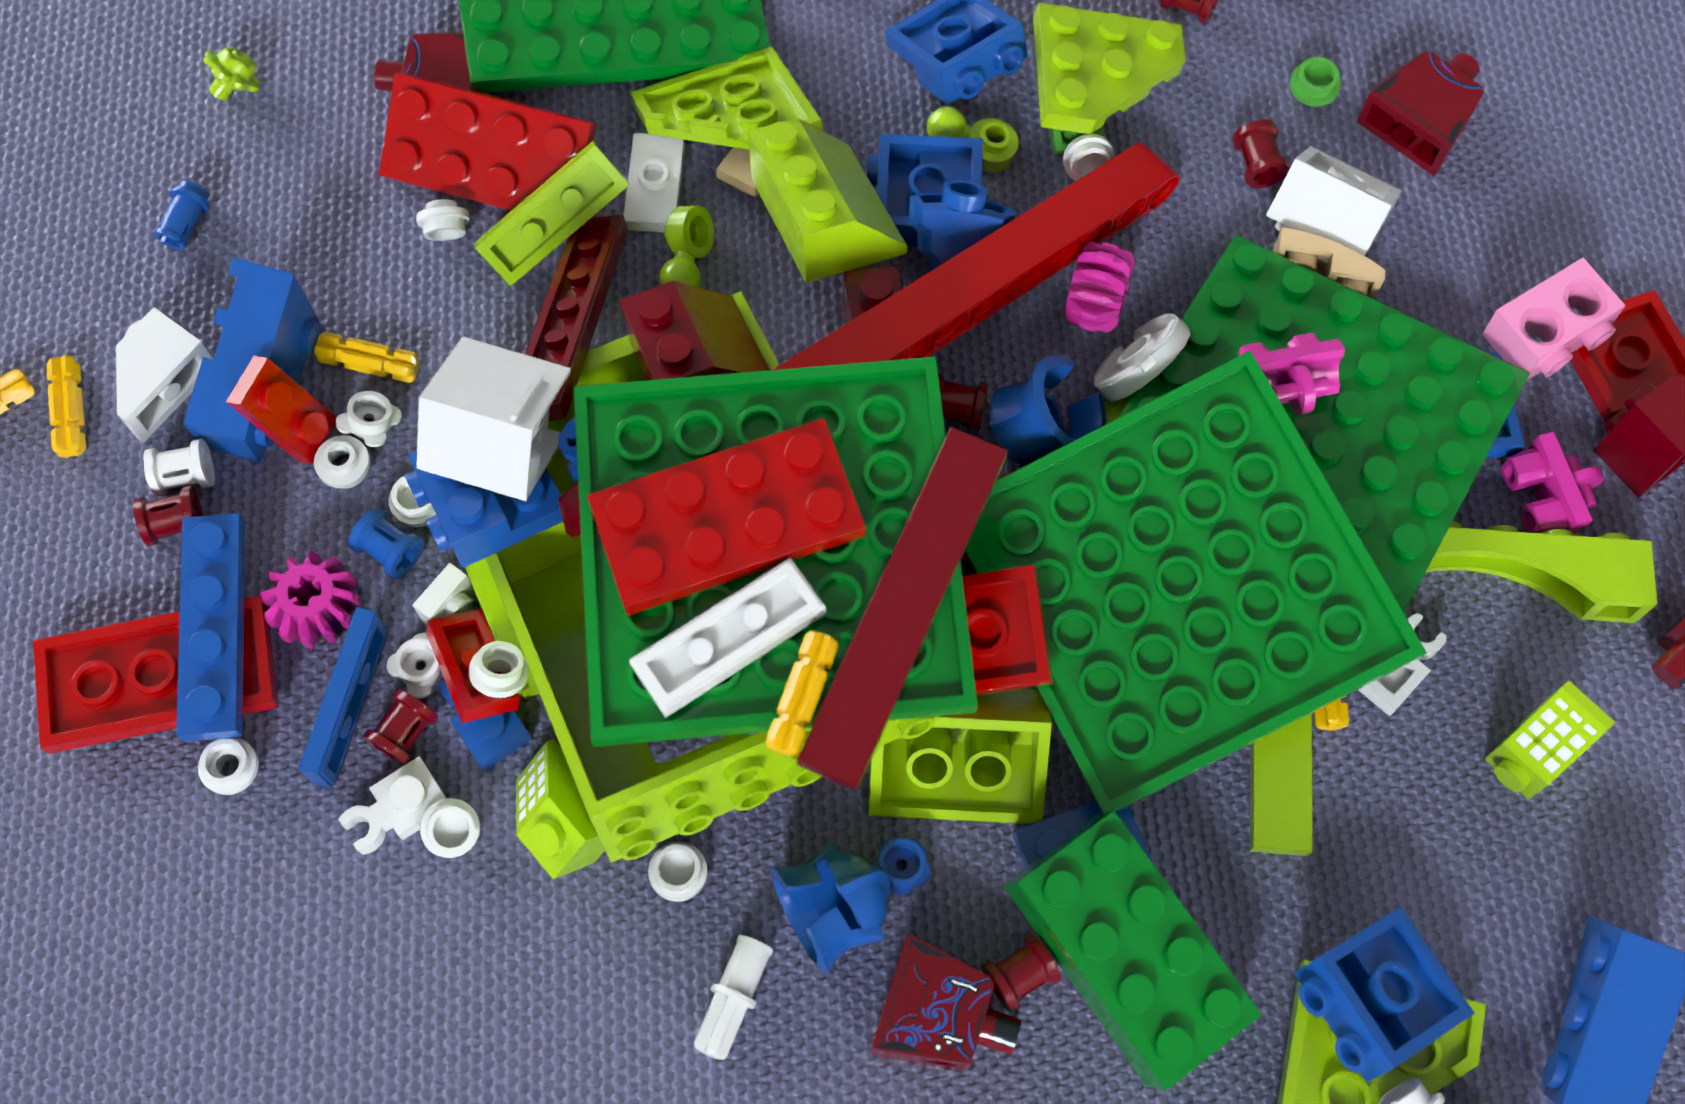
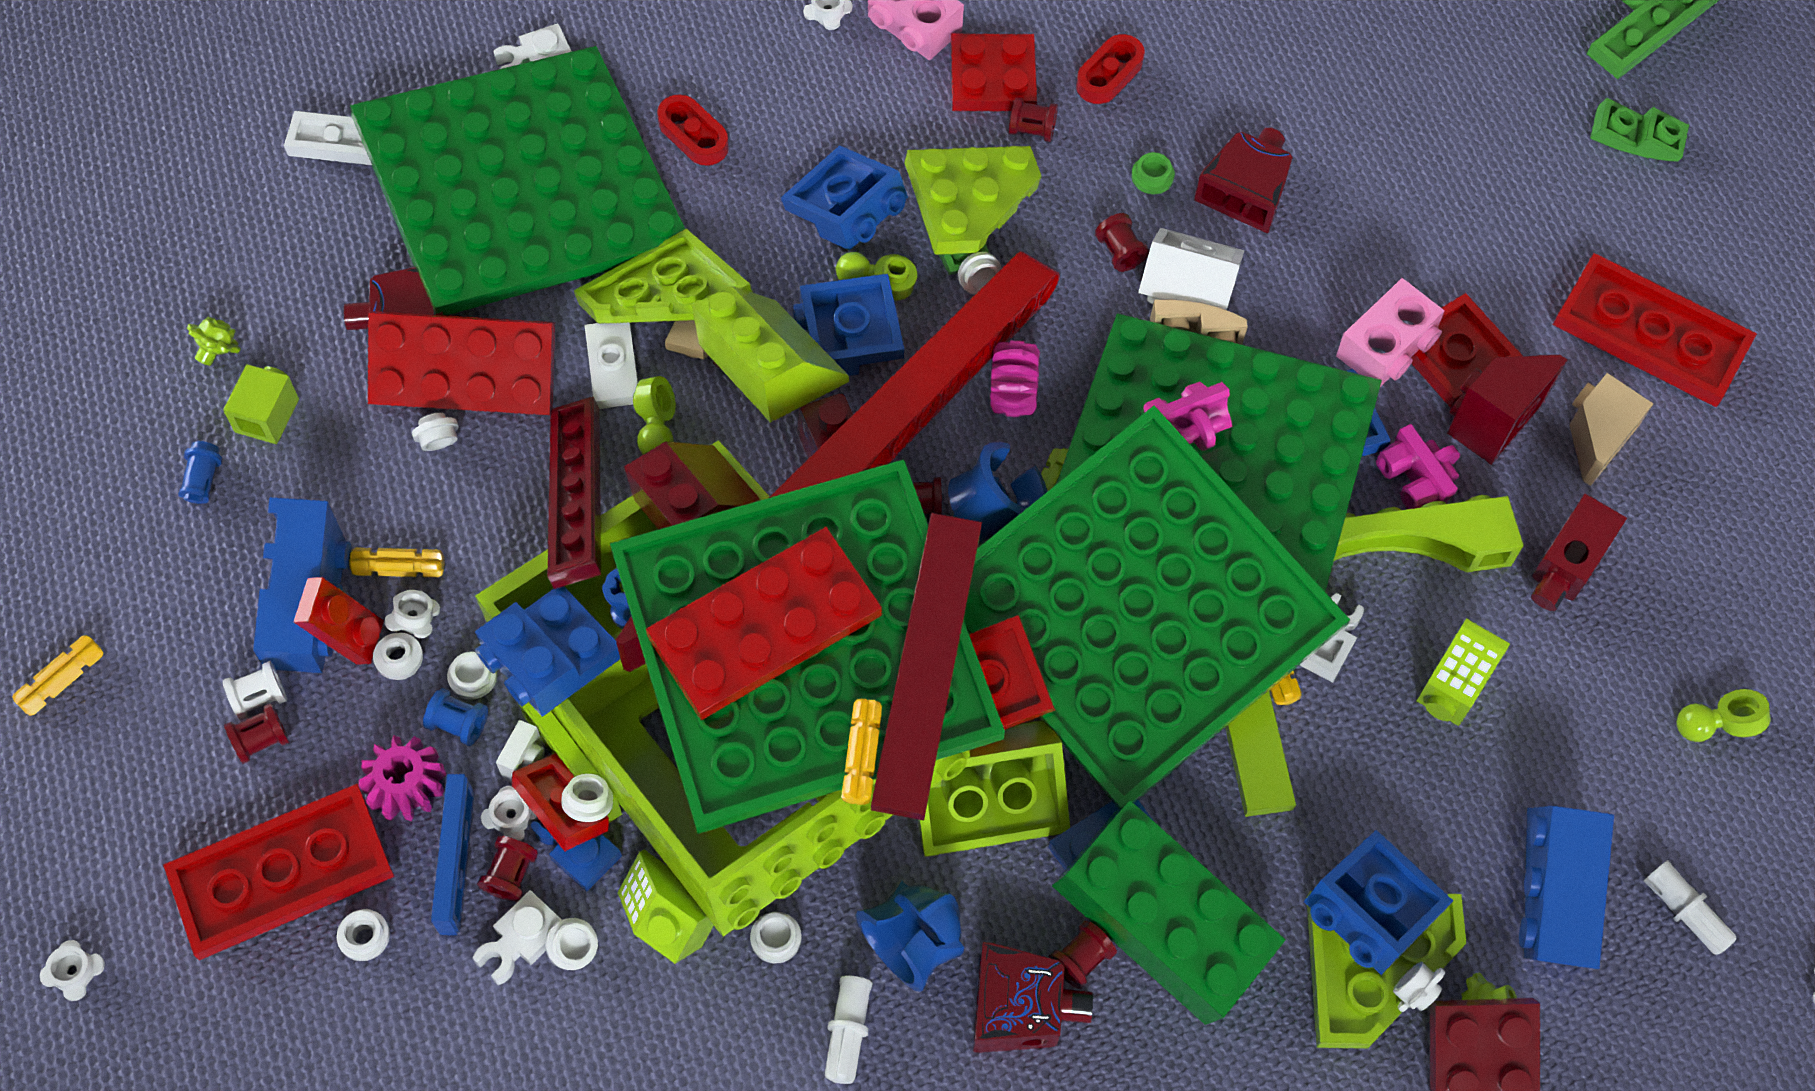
camera: 15 degrees left, 5 degrees down
(66, 406) = (136, 659): yellow axle -> none
(155, 372) = (214, 610): white slope -> none
(211, 628) = (322, 819): blue plate -> none
(264, 152) = (261, 403): none -> lime brick
(489, 418) = (544, 584): white piece -> none
(551, 213) = (533, 407): lime plate -> none
(727, 637) = (789, 720): white tile -> none
(913, 854) = (972, 881): blue plate -> none
(954, 220) = (882, 347): blue rock -> none
(1144, 359) = (1069, 426): white tile -> none

